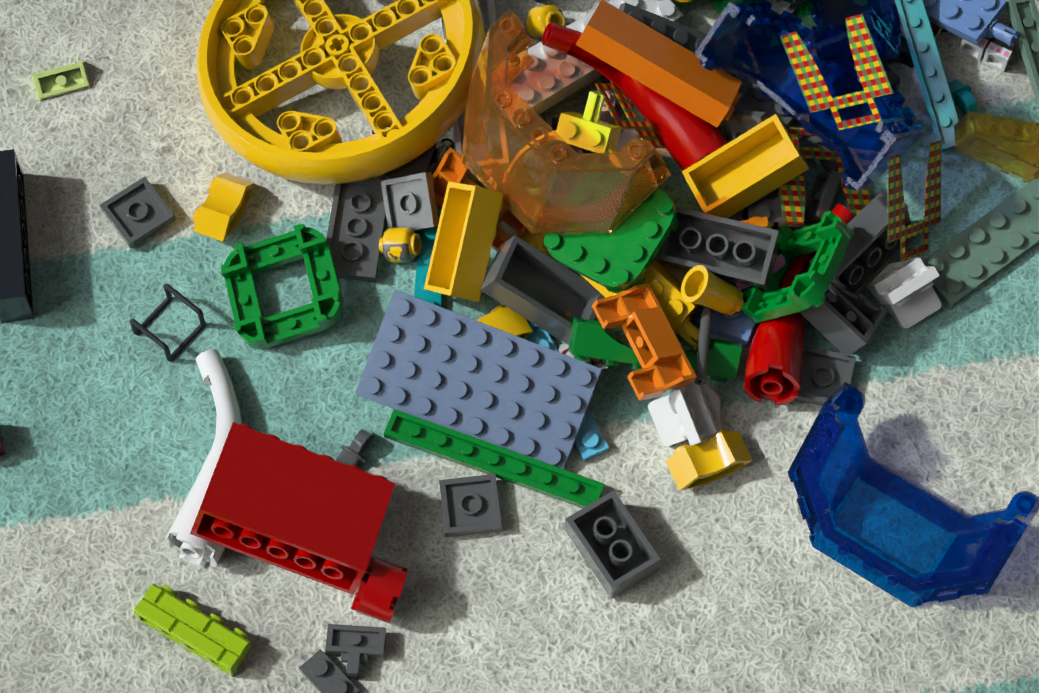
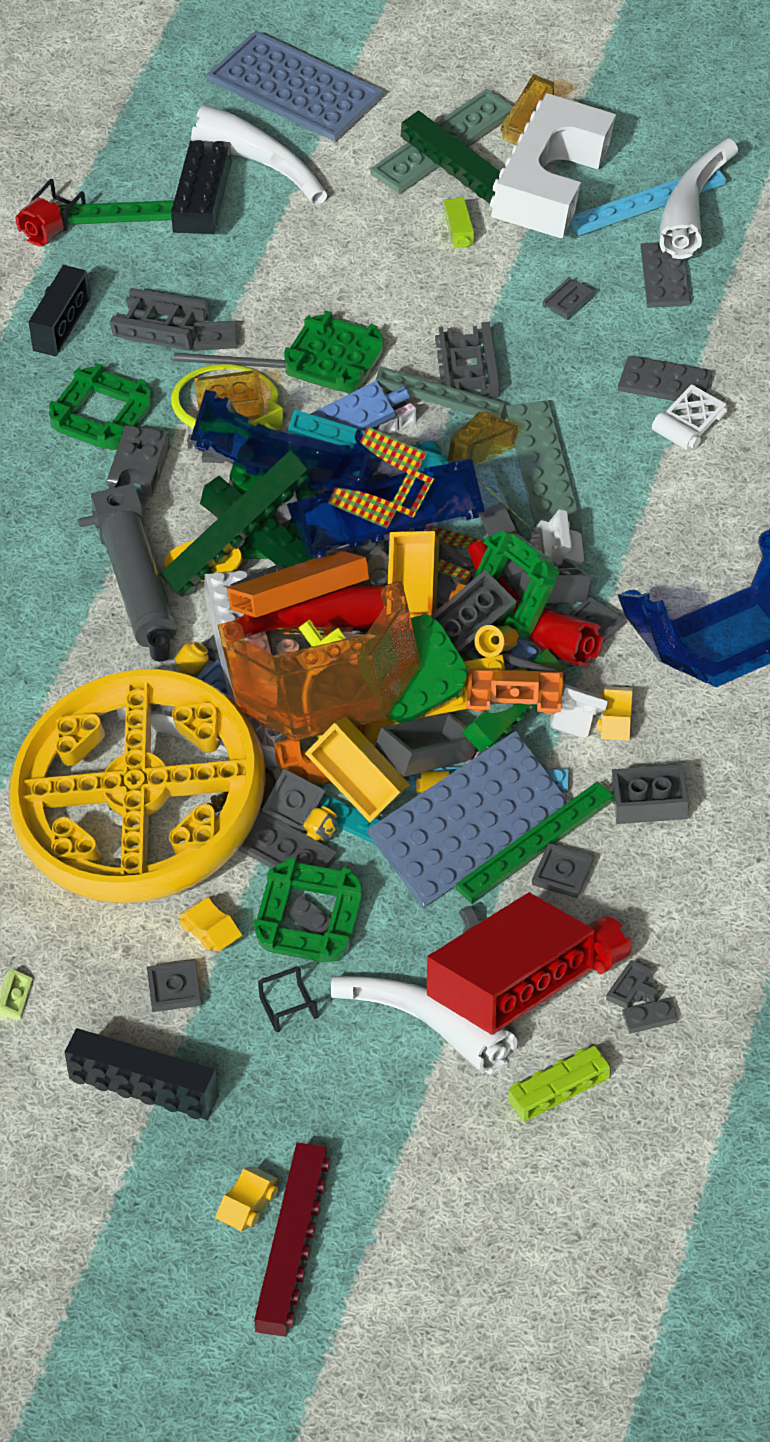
camera: 60 degrees left, 15 degrees down
(286, 290) = (308, 916): none -> dark grey plate

